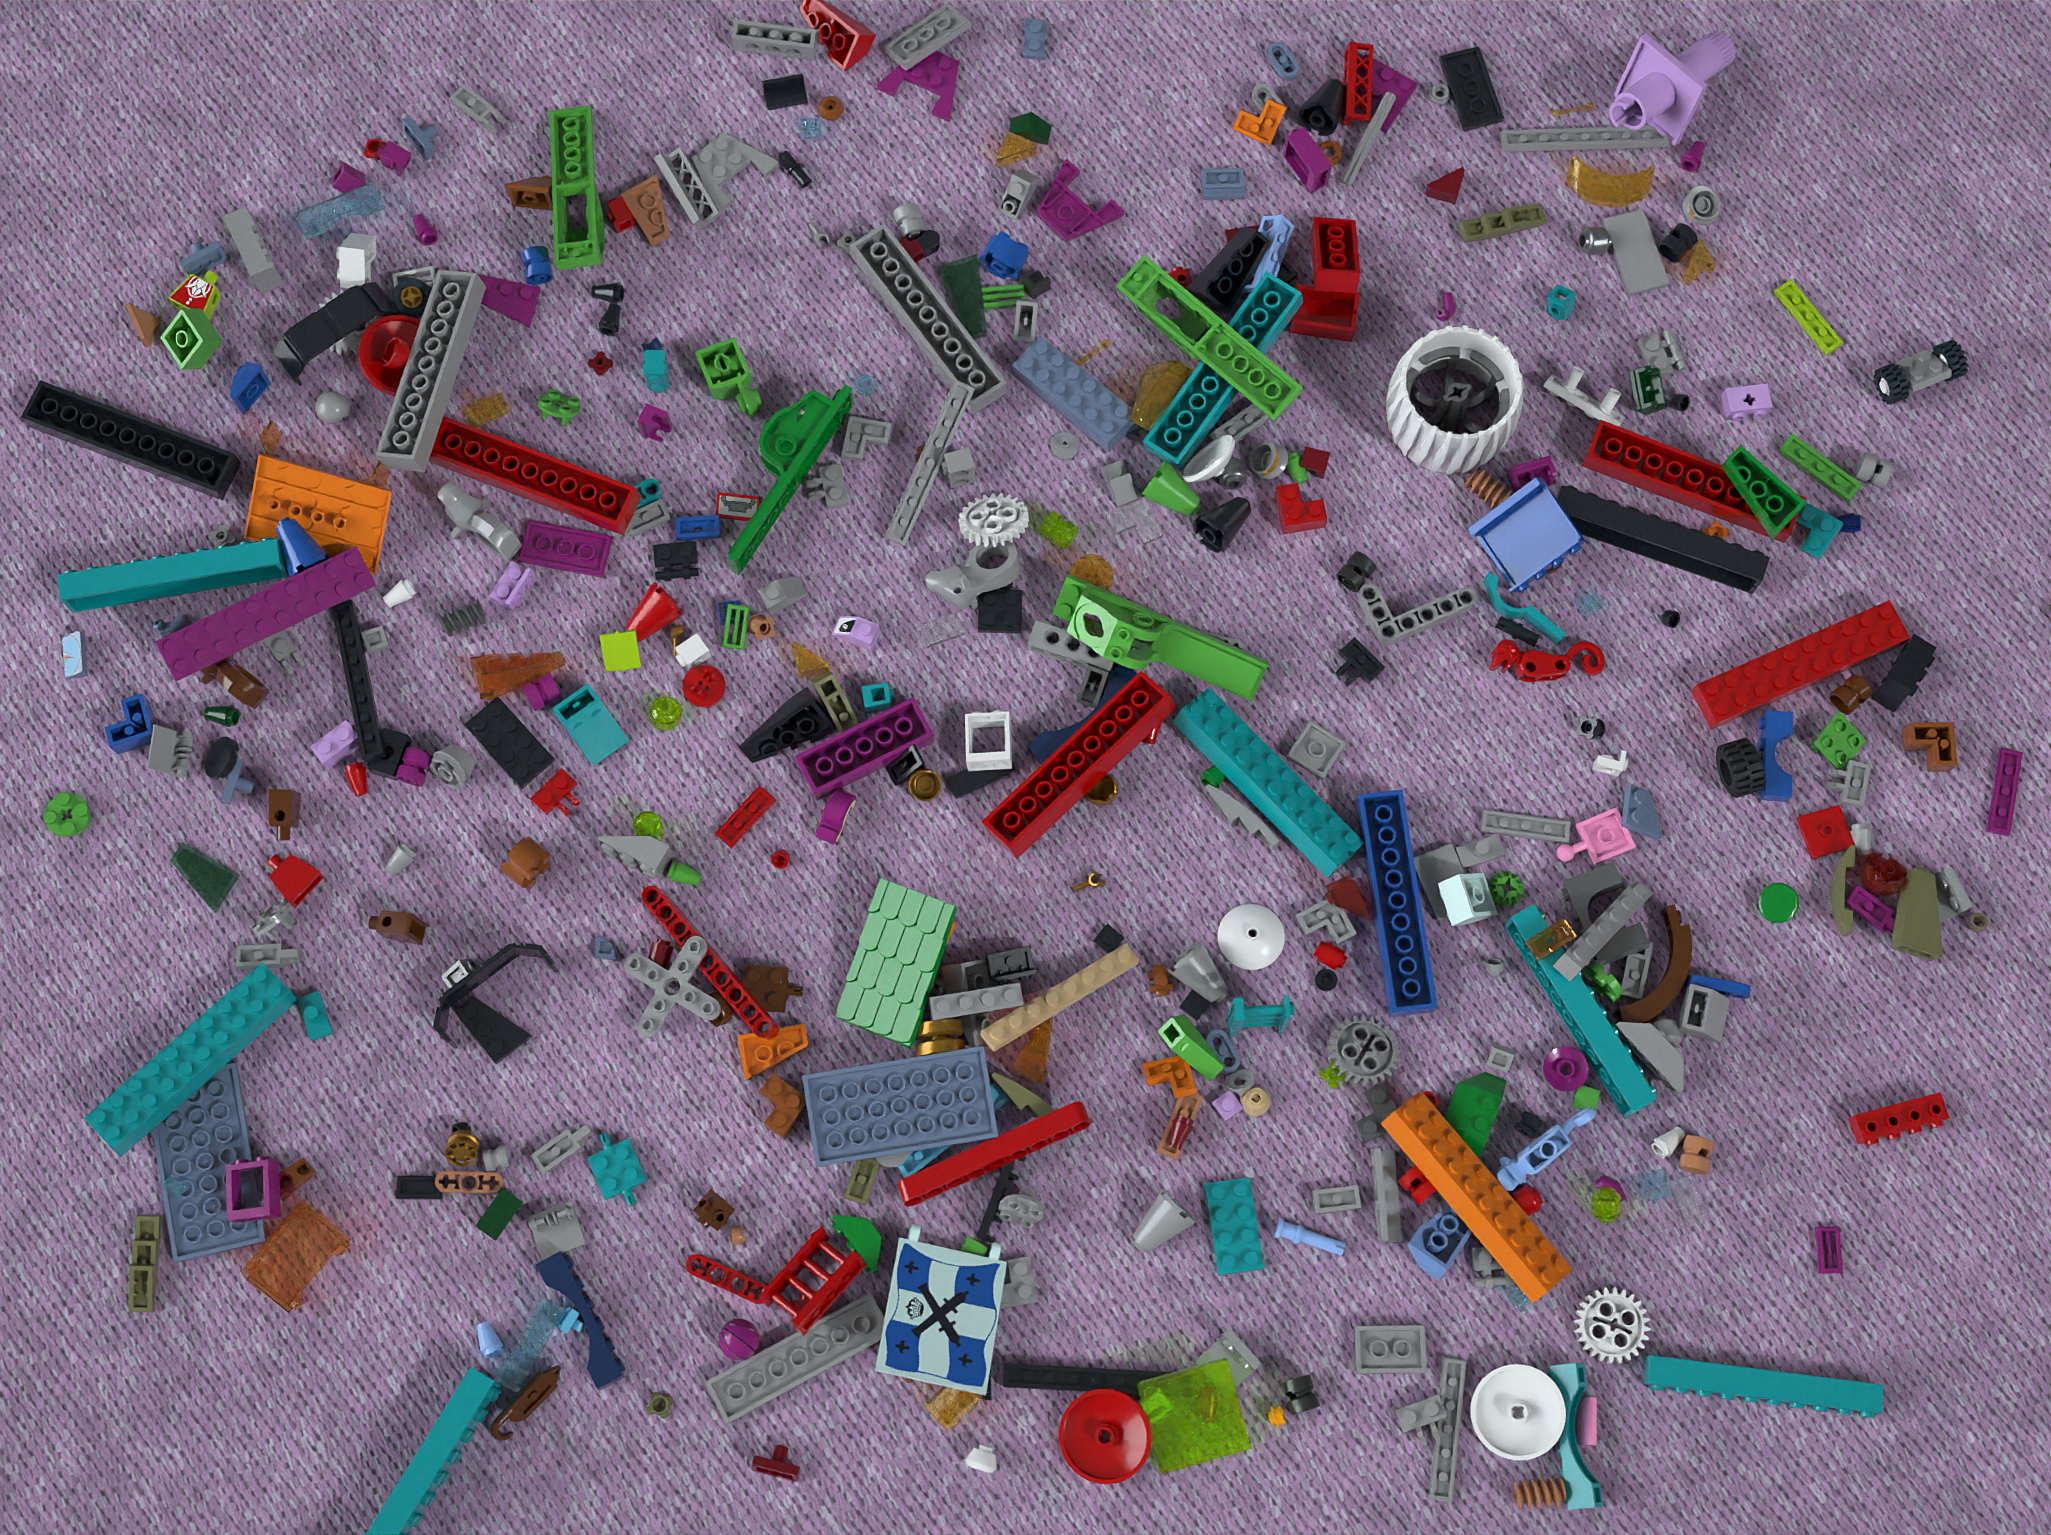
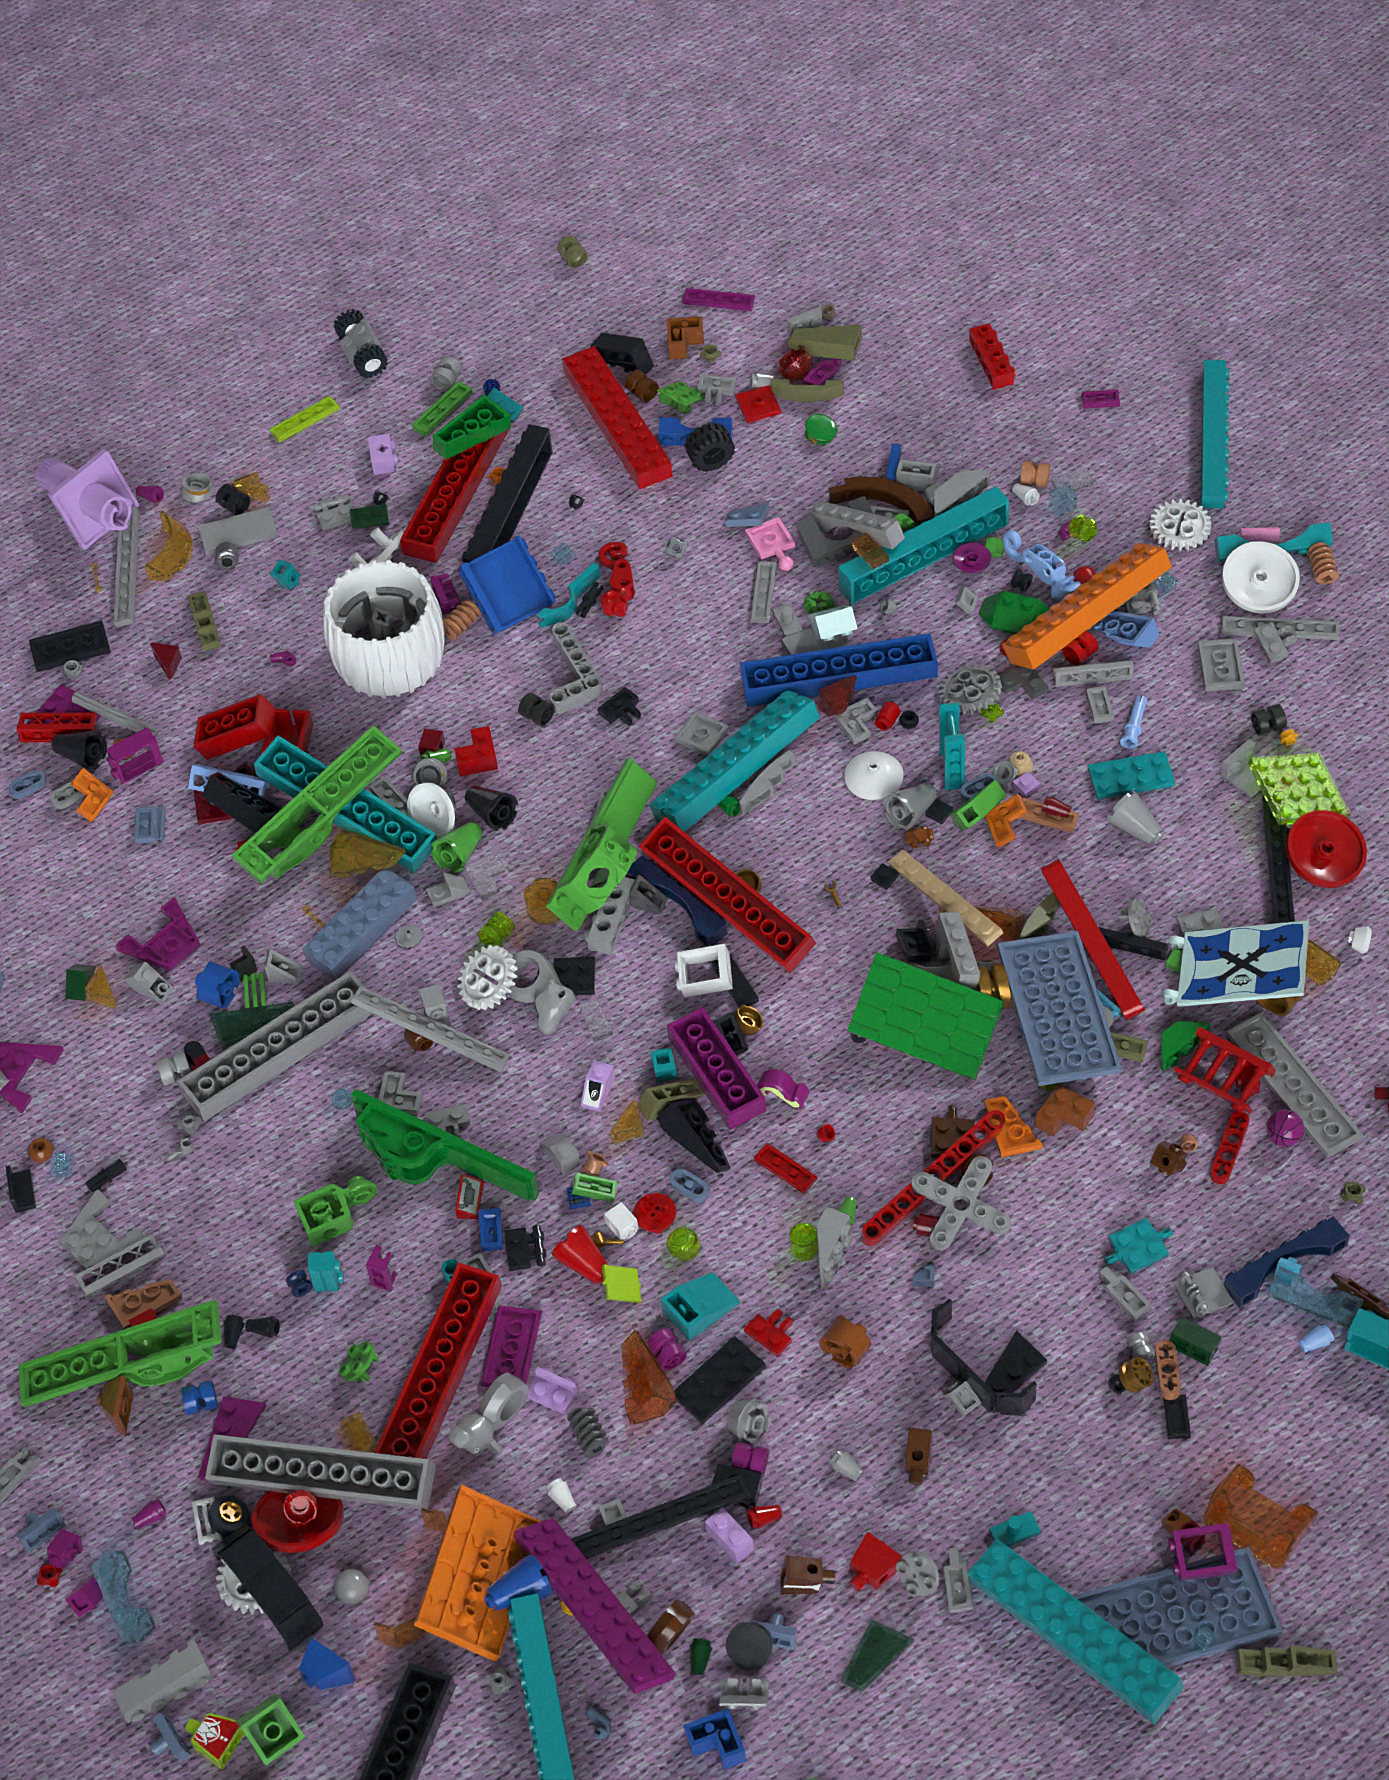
camera: 85 degrees left, 20 degrees down
(355, 259) = (184, 1569): white brick -> none
(600, 369) = (313, 1337): dark red plate -> none
(730, 720) = (690, 1186): none -> sand blue plate
(1610, 766) = (707, 534): white bracket -> none
(1913, 774) = (710, 353): none -> olive plate

